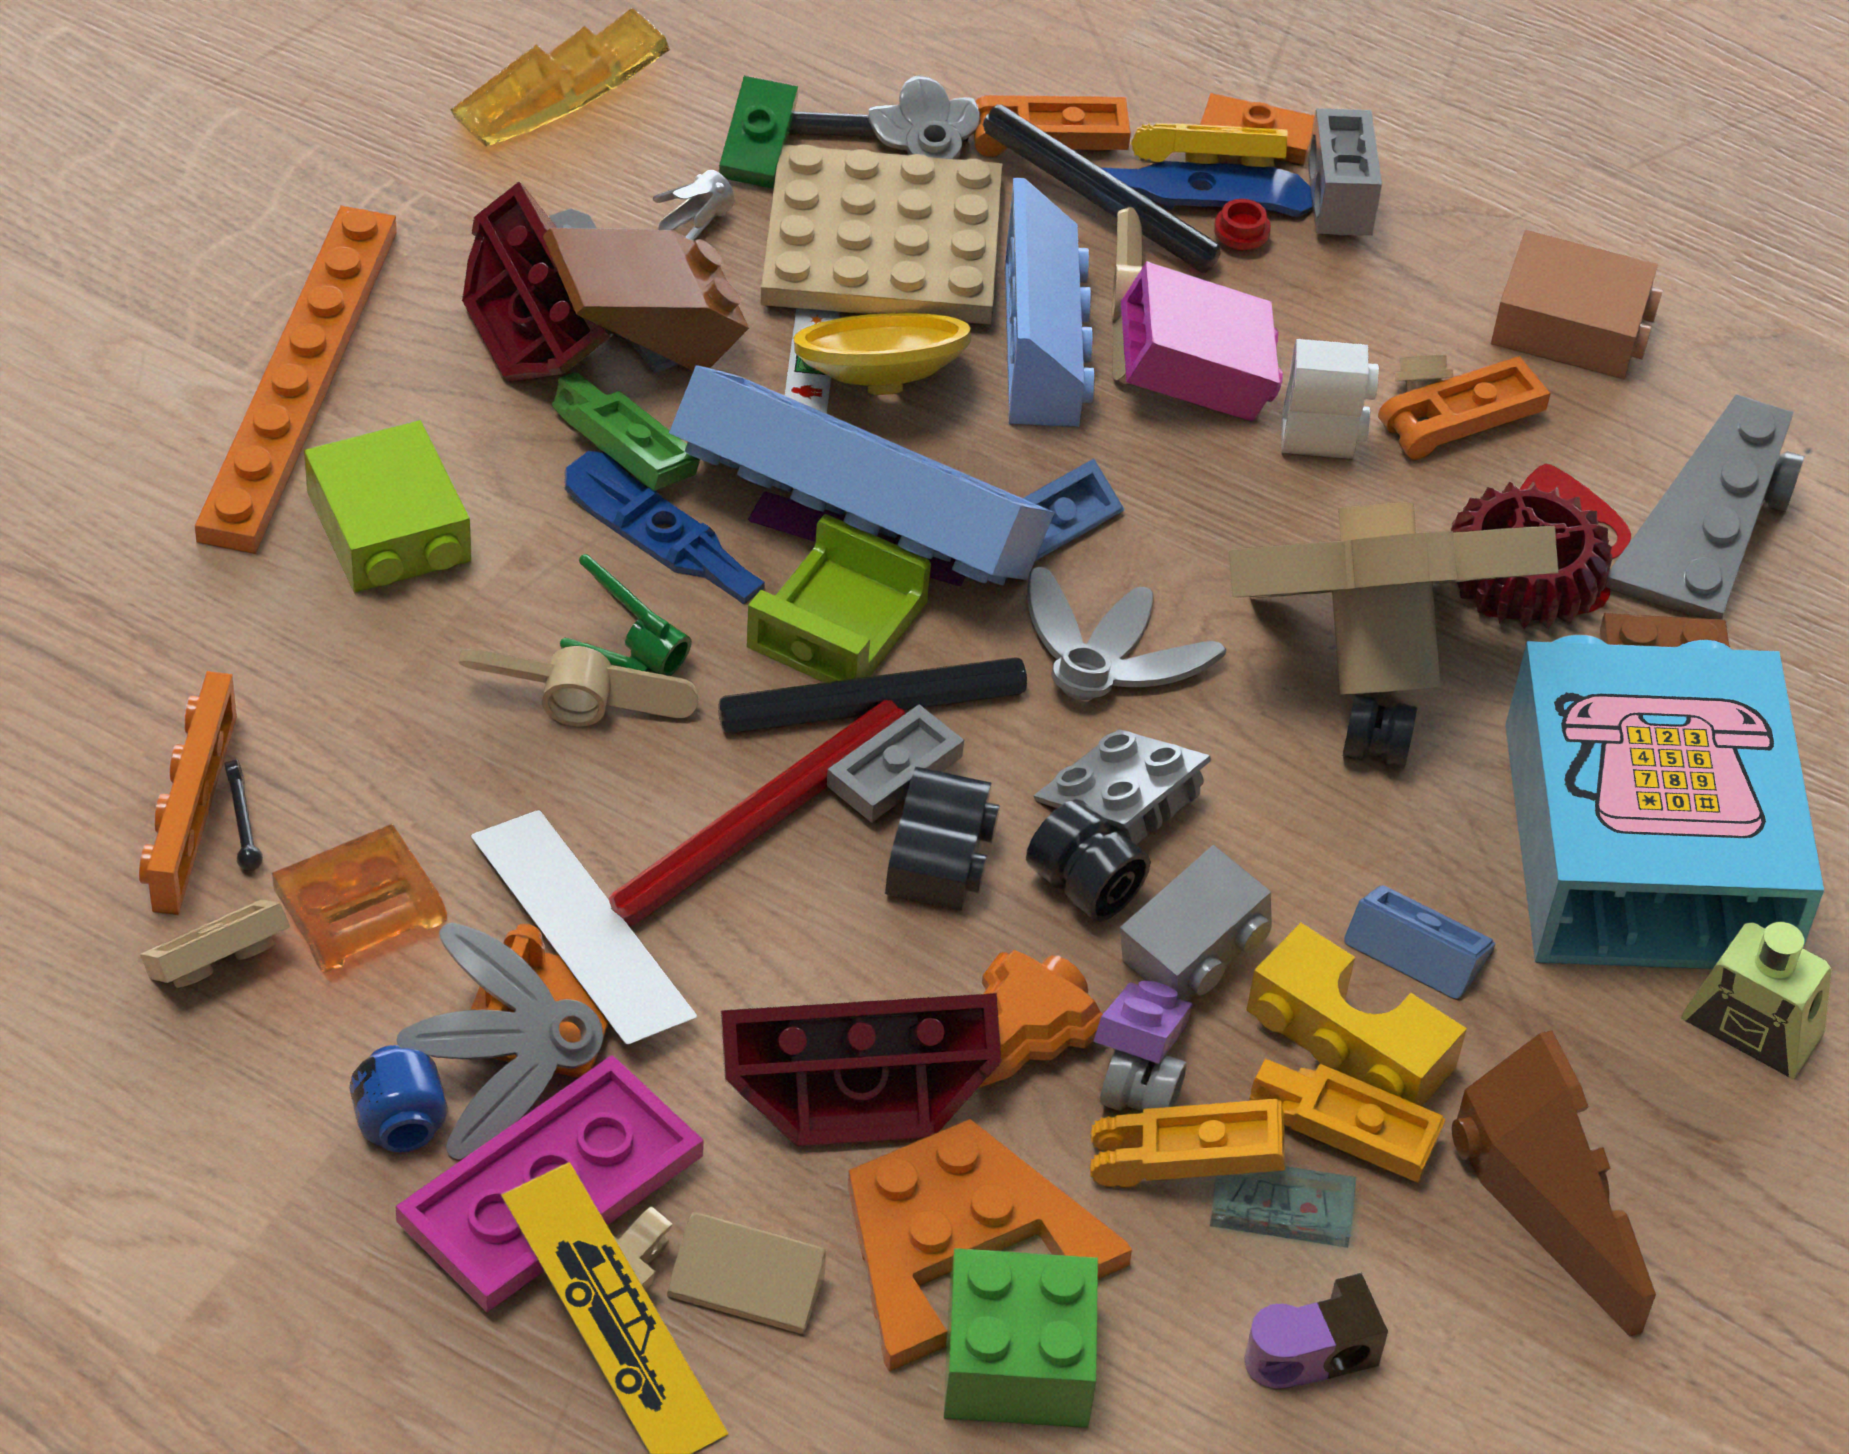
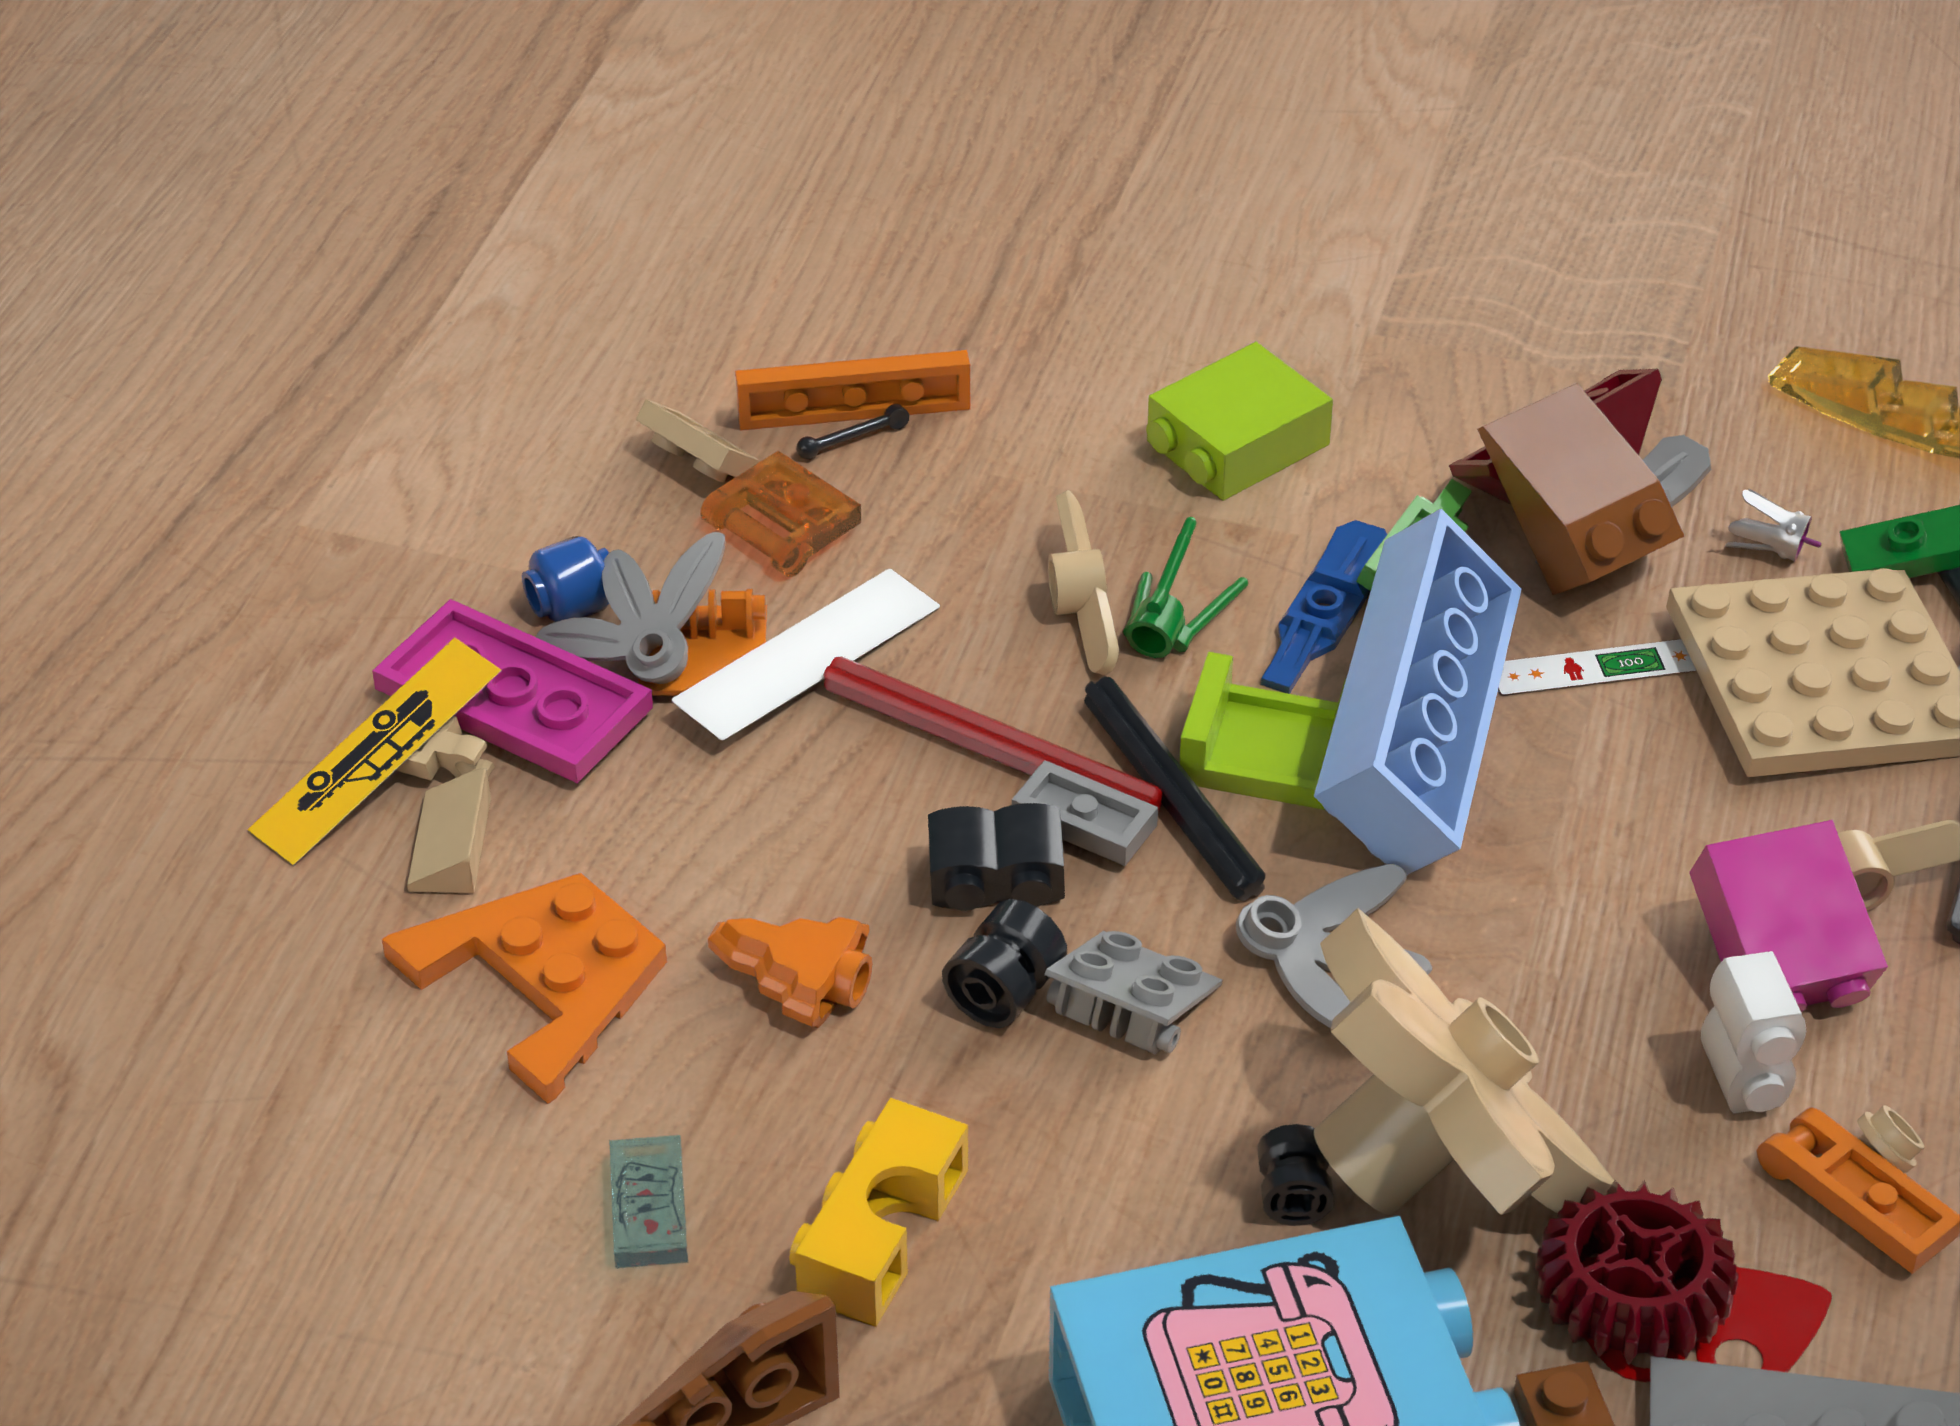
camera: 80 degrees right, 5 degrees down
(295, 381) = (1398, 340): orange plate -> none
(861, 1065) = (685, 834): dark red wedge -> none
(882, 348) = (1628, 680): yellow dish -> none
(1021, 1338) = (412, 1015): bright green brick -> none
(1046, 313) = (1760, 776): light blue slope -> none
(1079, 502) = (1503, 880): medium blue slope -> none
(1128, 1077) = (743, 1057): light grey wheel -> none
(1144, 1020) = (807, 1035): medium lavender plate -> none
(1189, 1142) = (674, 1103): light orange hinge -> none
(1198, 925) = (948, 1057): light grey brick -> none
(1317, 1339) = (473, 1243): leg -> none
(1352, 1116) = (757, 1230): light orange hinge -> none
(1418, 941) = (1035, 1250): medium blue slope -> none

